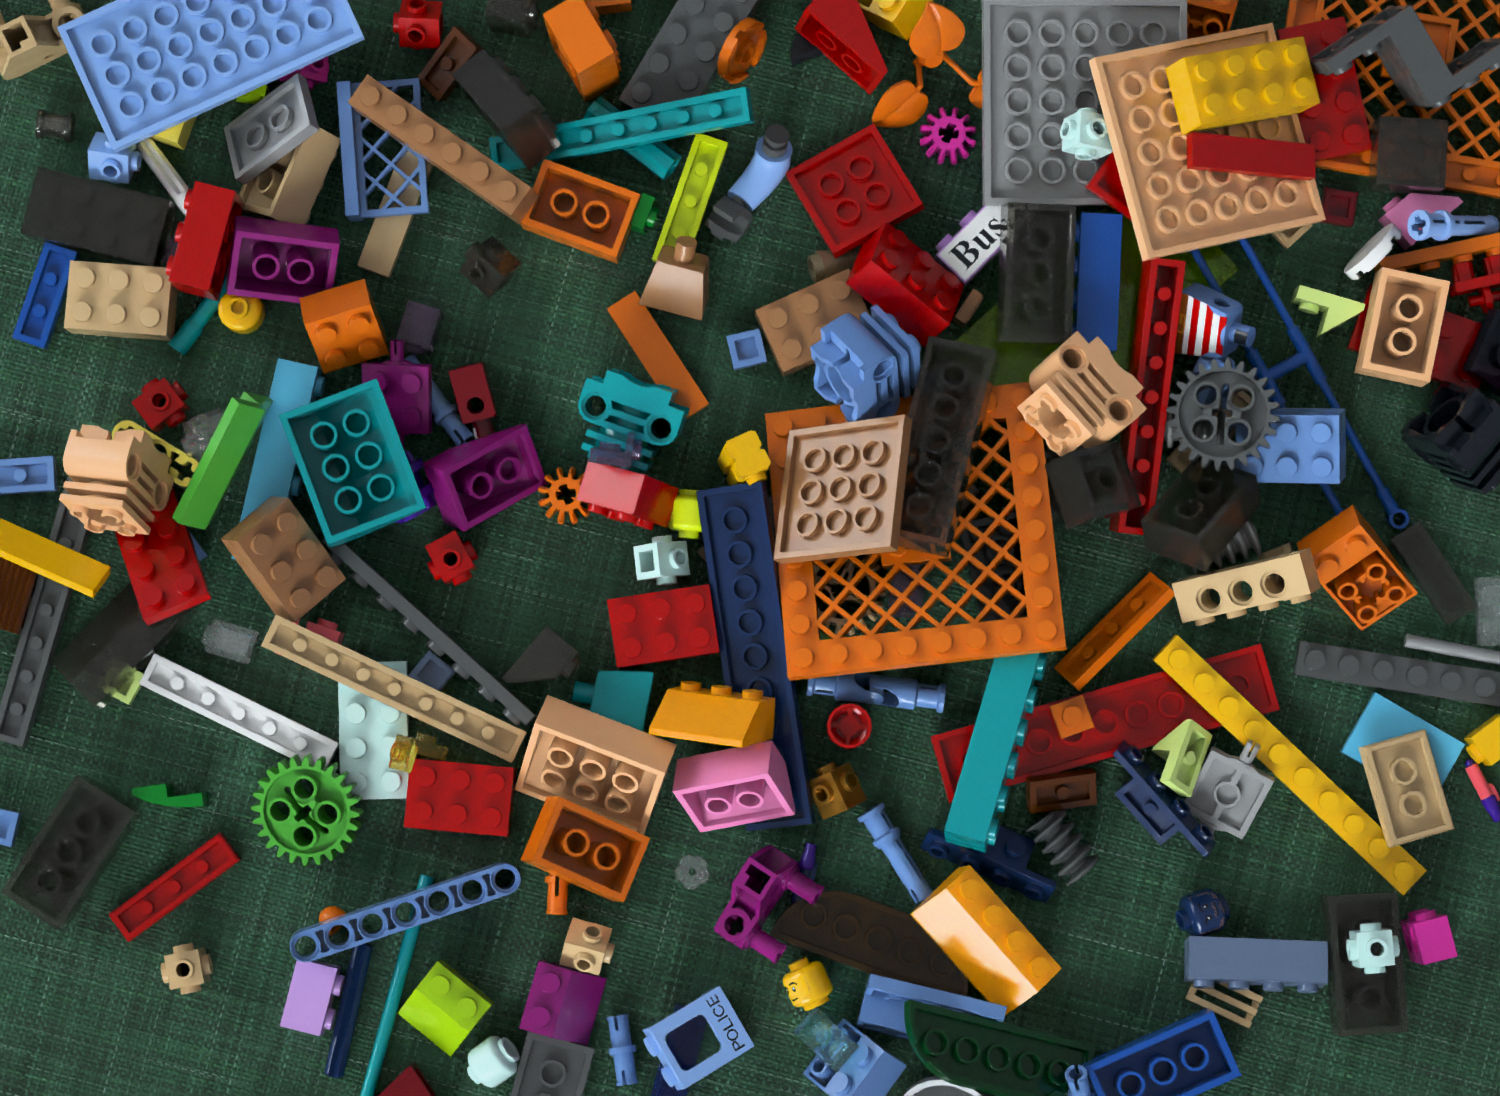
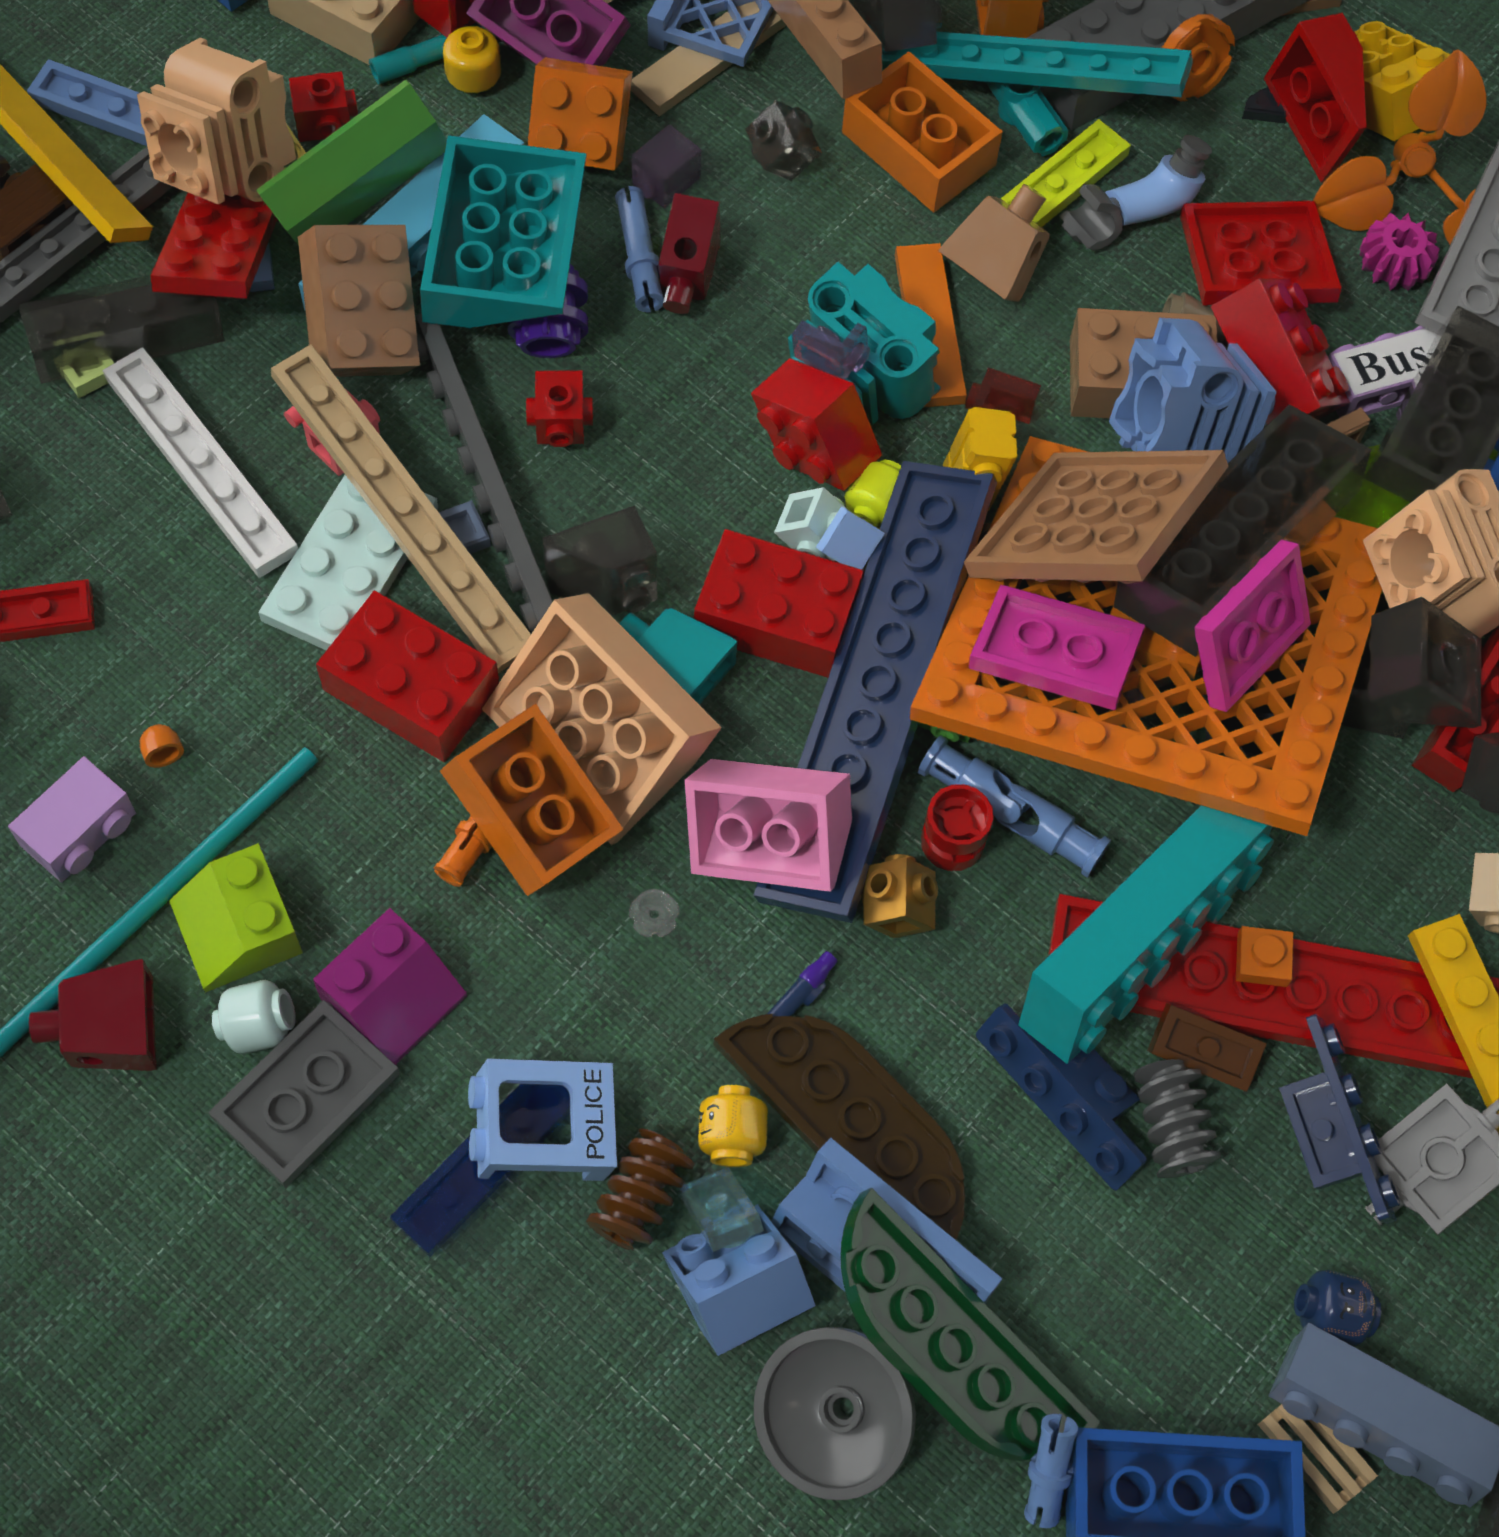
camera: 20 degrees right, 20 degrees down
(163, 795) = (49, 505): green slope -> none
(230, 641) = (240, 378): clear brick -> none
(286, 829) = (171, 613): bright green gear -> none
(348, 1010) = (108, 865): dark blue axle -> none
(386, 910) = (236, 750): medium blue beam -> none
(405, 390) = (610, 215): magenta plate -> none
(405, 749) = (388, 582): clear yellow bracket -> none
(484, 476) = (653, 338): magenta slope -> none
(559, 505) = (731, 411): orange gear -> none
(587, 946) = (463, 930): tan brick -> none
(622, 1050) = (434, 1092): medium blue pin -> none
(645, 214) = (993, 172): green plate -> none
(690, 568) = (850, 539): none -> light blue tile
(715, 715) = (791, 719): light orange slope -> none
(738, 393) = (1005, 393): none -> clear red bracket
(746, 349) = (1043, 359): medium blue plate -> none
(757, 906) = (729, 953): magenta piece -> none
(775, 1048) = (639, 1190): none -> reddish brown piece
(859, 592) = (1057, 647): none -> dark pink plate
(888, 839) = (938, 998): medium blue pin -> none
(975, 526) = (1253, 625): none -> dark pink plate
(985, 939) = (1013, 1184): light orange slope -> none
(1114, 631) = (1368, 884): orange plate -> none
(1184, 755) = (1400, 1077): yellowish green slope -> none

